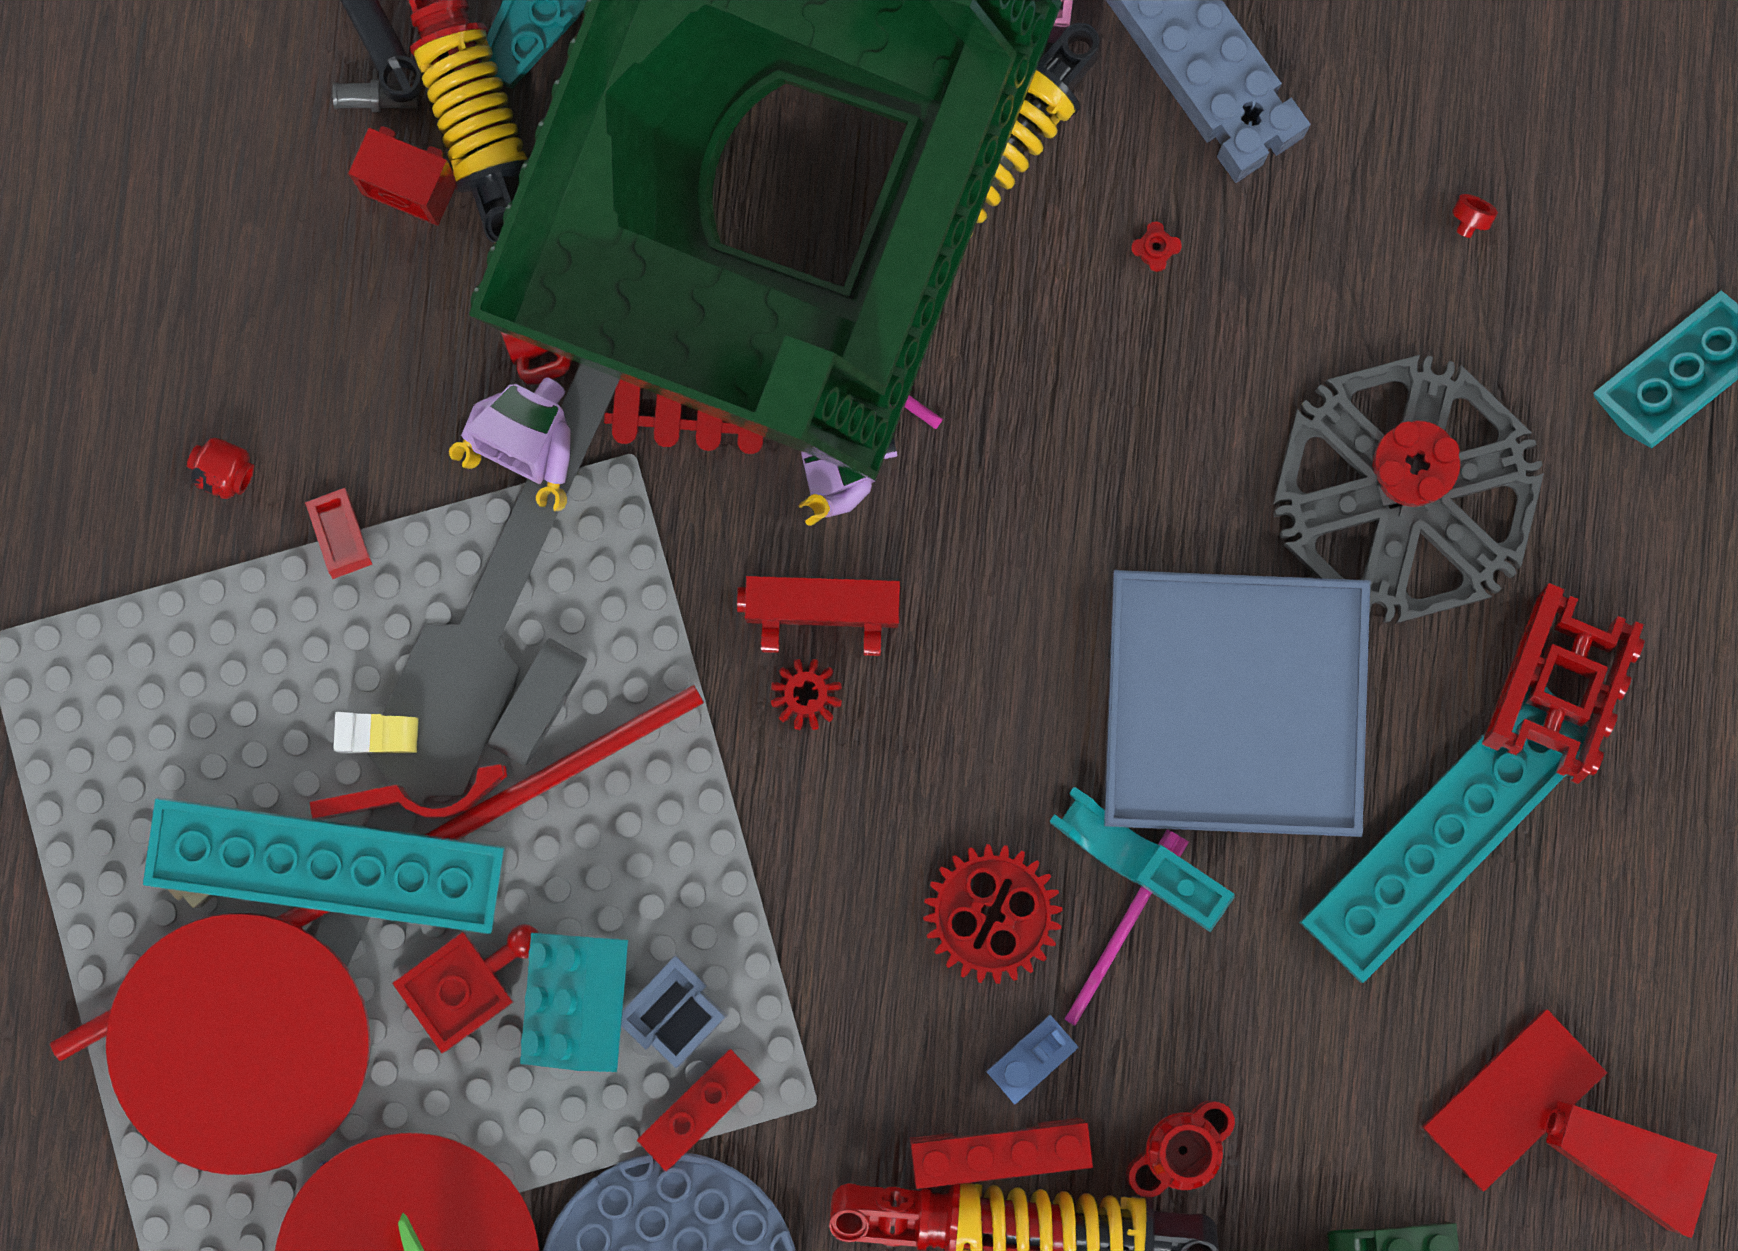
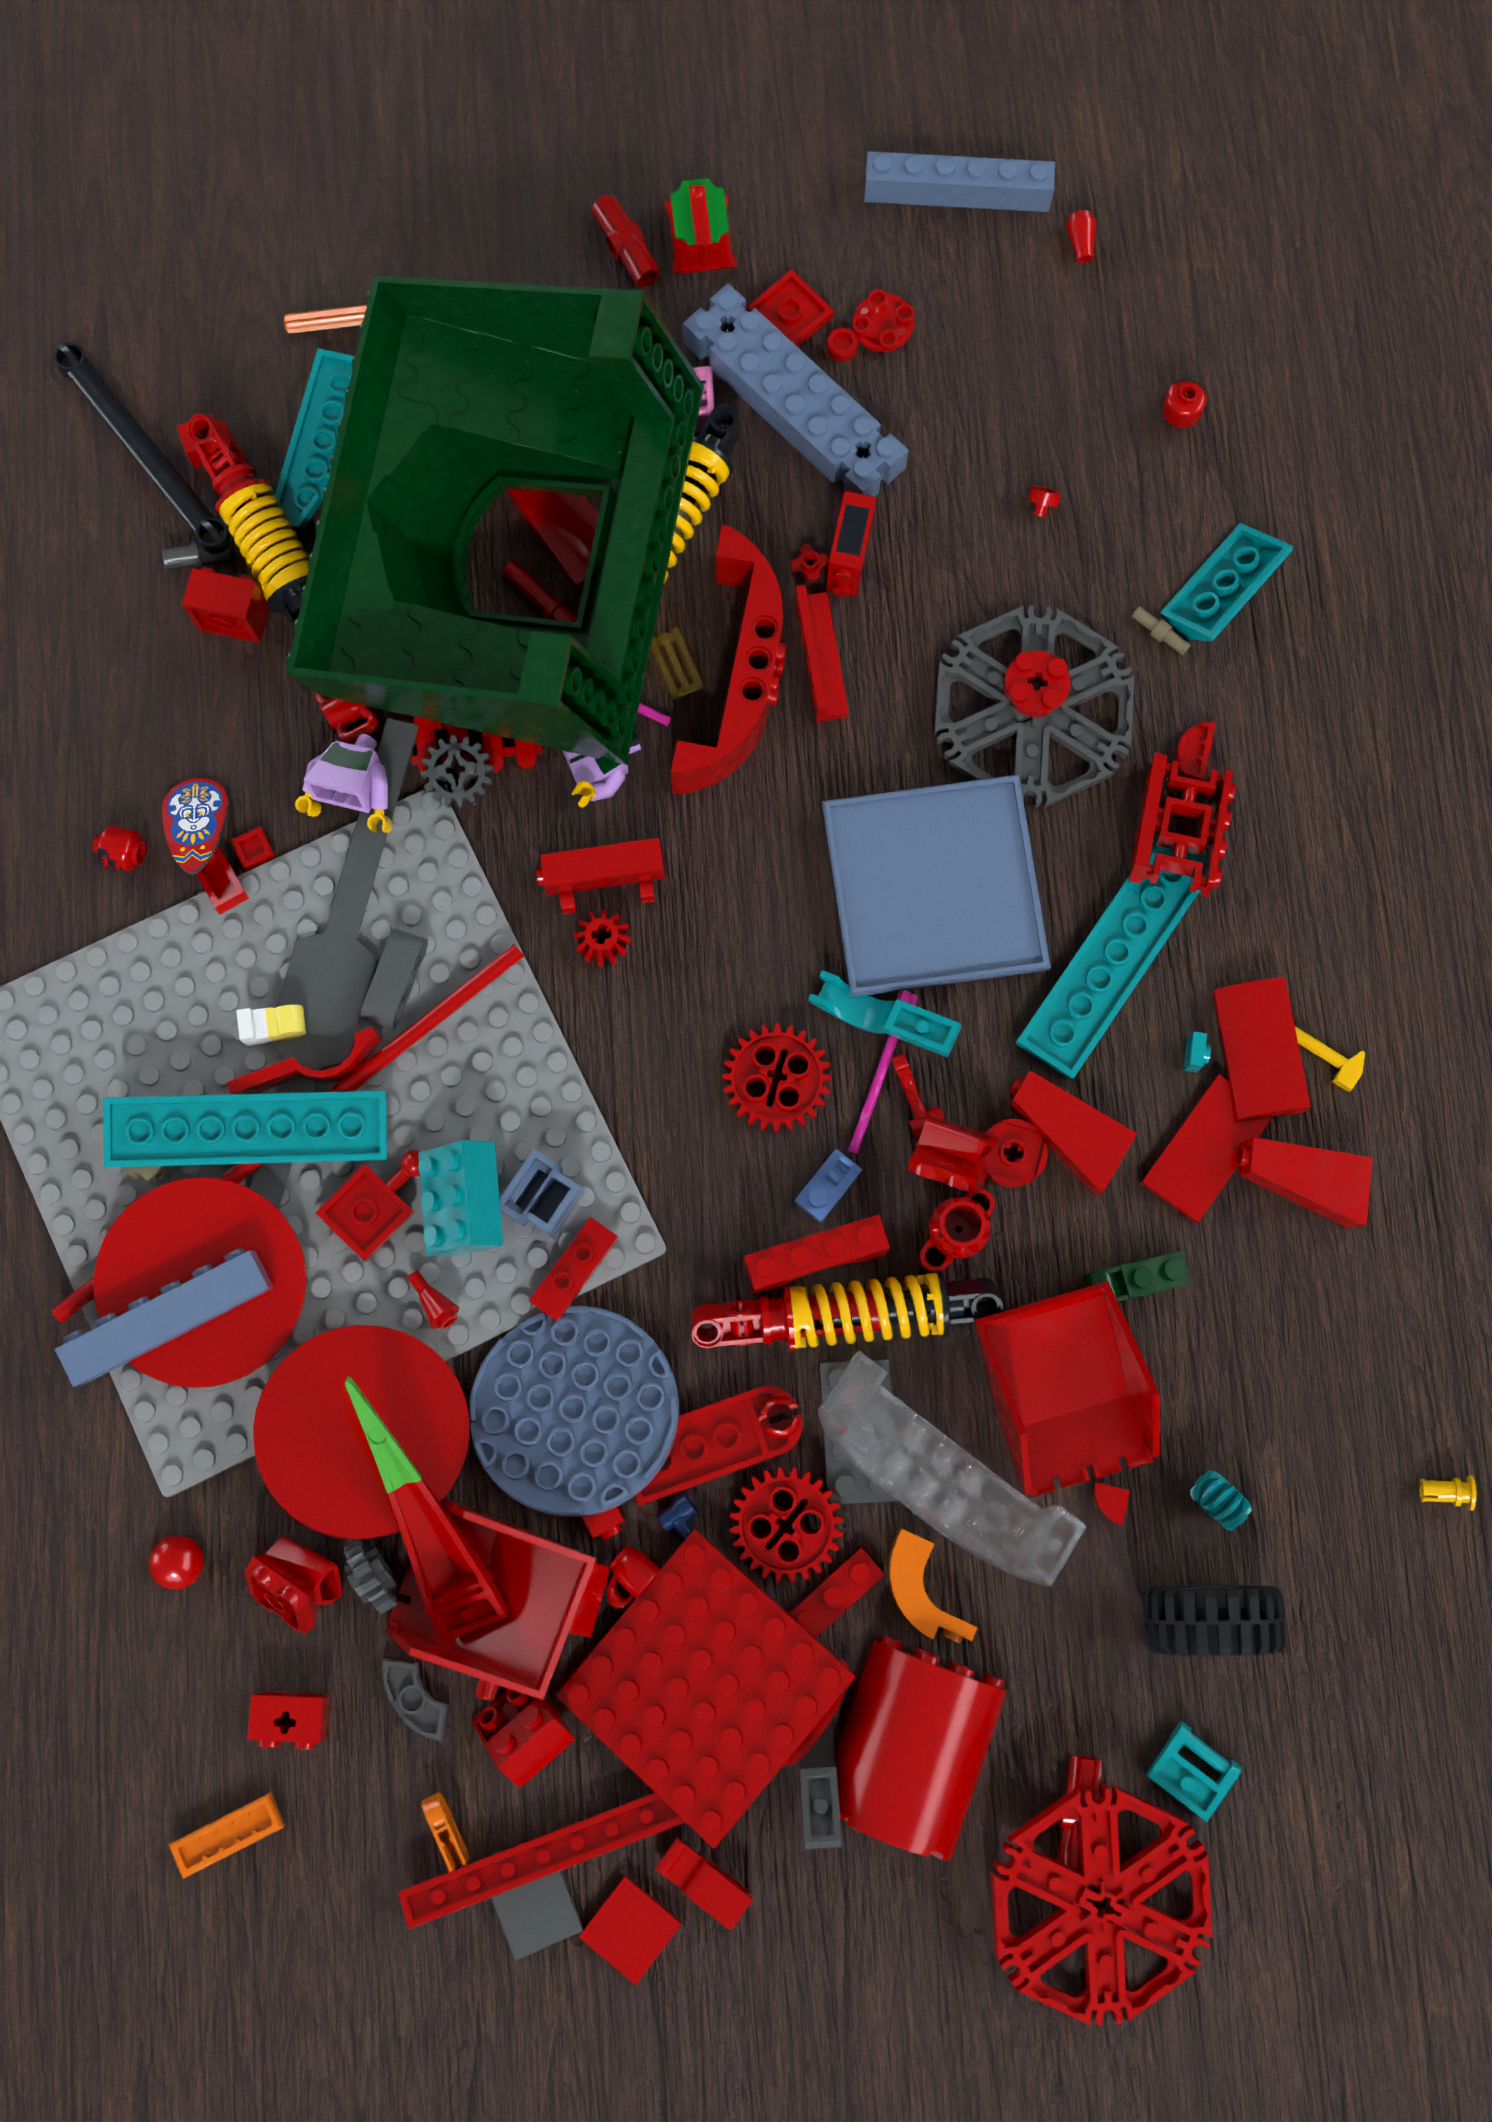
camera: 10 degrees left, 5 degrees down
(187, 1084) = (164, 1317): none -> sand blue brick
(319, 451) = (194, 821): none -> shield
(387, 496) = (253, 848): none -> red tile
(523, 1128) = (438, 1308): none -> red cone
(641, 446) = (442, 772): none -> dark grey gear
(816, 250) = (536, 593): none -> red pin
(851, 148) = (563, 526): none -> red slope
(952, 314) = (665, 640): none -> clear yellow tile
(1082, 318) = (754, 673): none -> red slope
(1148, 372) = (821, 655): none -> red fence
(1168, 1001) = (917, 1106): none -> red brick
(1193, 1057) = (952, 1154): none -> red piece
(1213, 237) = (850, 544): none -> red brick
(1292, 1052) = (1028, 1142): none -> red plate
(1355, 1053) = (1073, 1130): none -> red slope
(1524, 977) = (1196, 1052): none -> teal plate
(1590, 417) = (1161, 630): none -> dark tan bar
(1600, 584) = (1194, 750): none -> red tile
(1606, 988) = (1261, 1049): none -> red slope
(1680, 120) = (1184, 403): none -> red head
(1713, 1031) = (1349, 1069): none -> yellow piece

